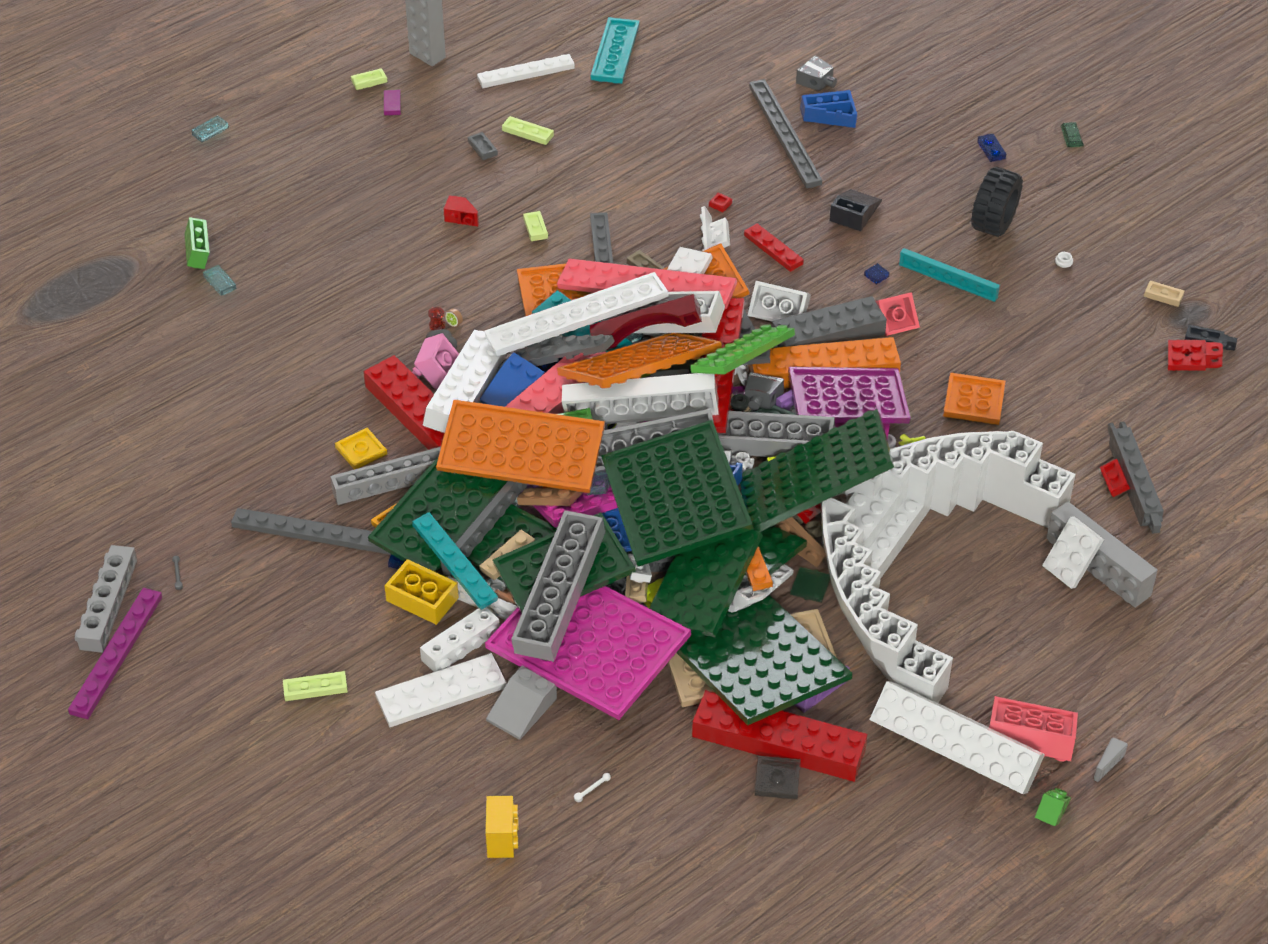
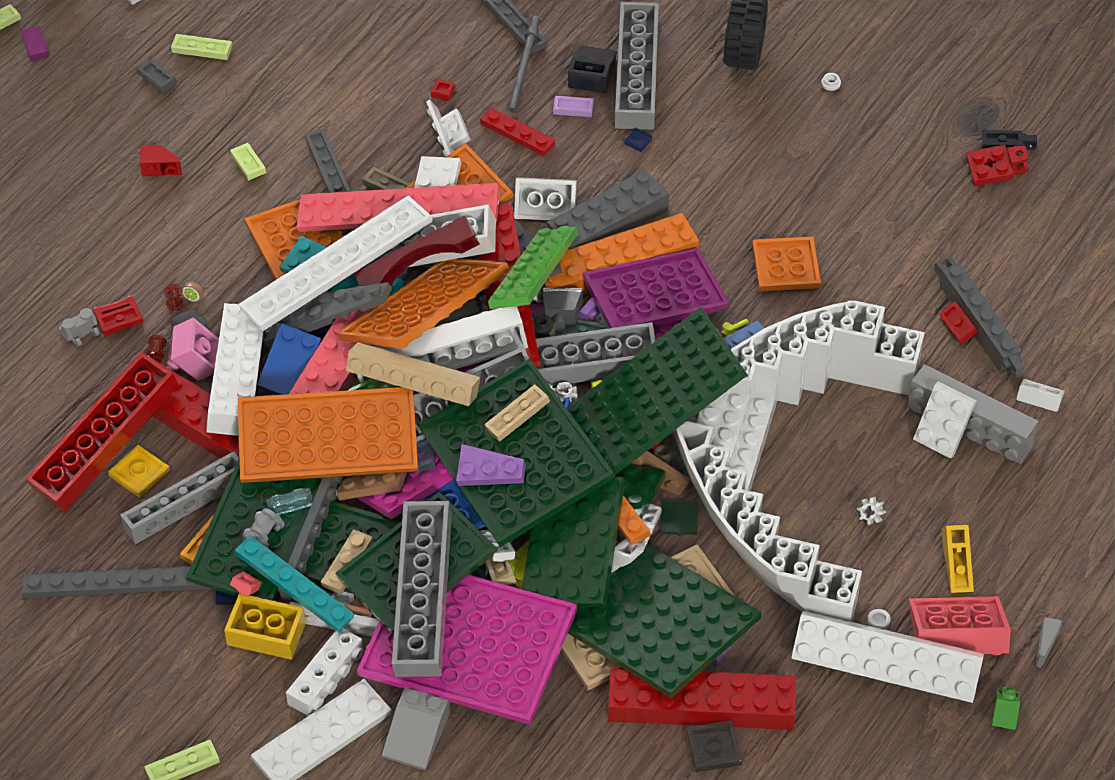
camera: 15 degrees left, 5 degrees up
(338, 408) = (102, 431): none -> red brick
(350, 325) = (79, 326): none -> light grey piece
(385, 324) = (118, 315): none -> red plate
(408, 354) = (156, 346): none -> clear red bush
(414, 552) = (245, 583): none -> coral plate
(444, 506) = (263, 524): none -> light grey piece
(472, 494) = (290, 502): none -> clear light blue plate
(607, 410) = (413, 374): none -> tan brick
(647, 499) = (488, 467): none -> medium lavender wing
(685, 459) = (517, 412): none -> tan plate
(809, 172) = (531, 34): none -> flat silver bar
(829, 236) = (573, 106): none -> lavender tile
(894, 213) = (636, 66): none -> light grey brick
(899, 313) = (678, 180): coral slope -> none
(949, 274) = (716, 125): teal plate -> none
(962, 706) = (879, 619): none -> white tile
(978, 615) = (875, 506): none -> white gear
(1050, 671) = (958, 558): none -> yellow slope
(1164, 293) = (946, 99): tan plate -> none
(1171, 554) = (1040, 395): none -> white slope

